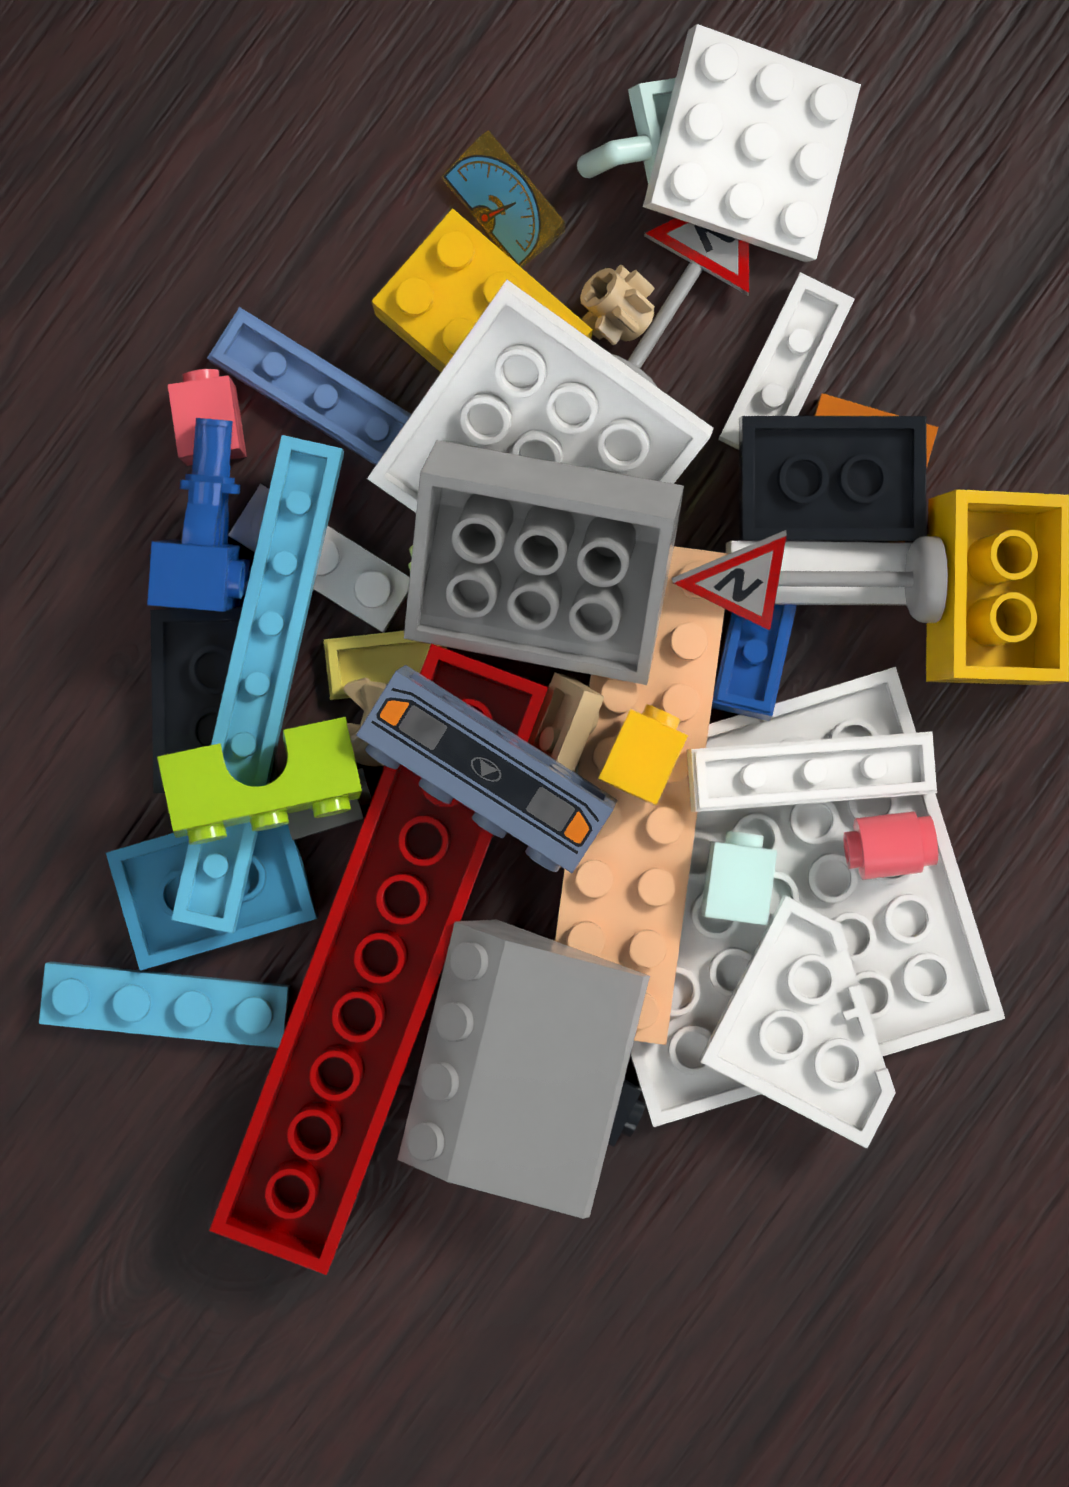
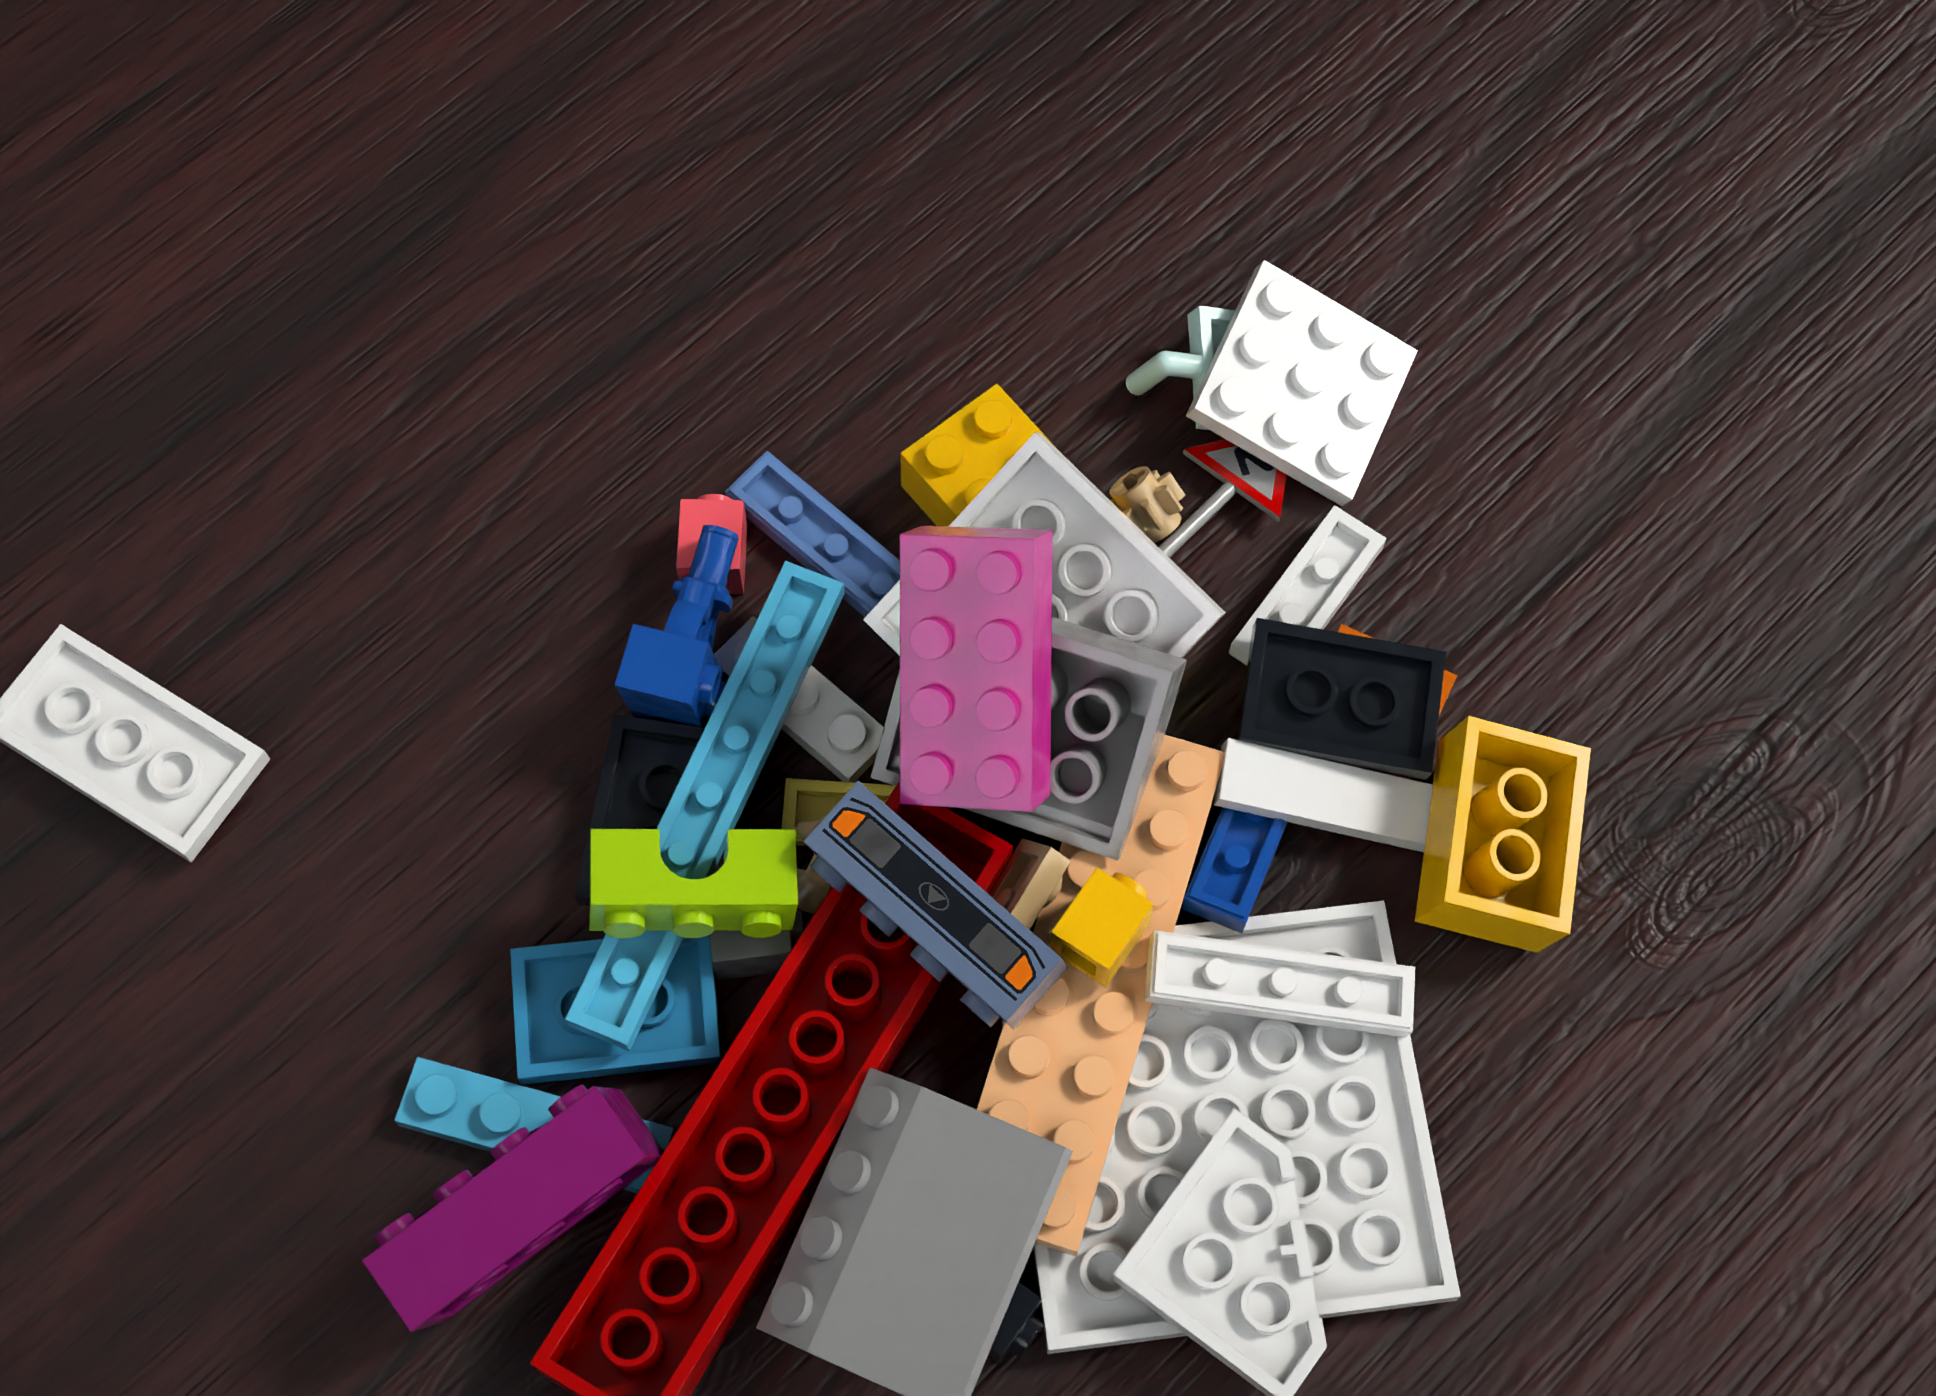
camera: 10 degrees right, 20 degrees down
(165, 1097) = (513, 1207): none -> magenta brick
(486, 541) = (975, 667): none -> dark pink brick
(504, 200) = (1050, 394): slope -> none
(739, 879) = (1185, 1084): light aqua brick -> none
(750, 578) = (1240, 770): light grey piece -> none
(891, 845) = (1356, 1075): coral brick -> none

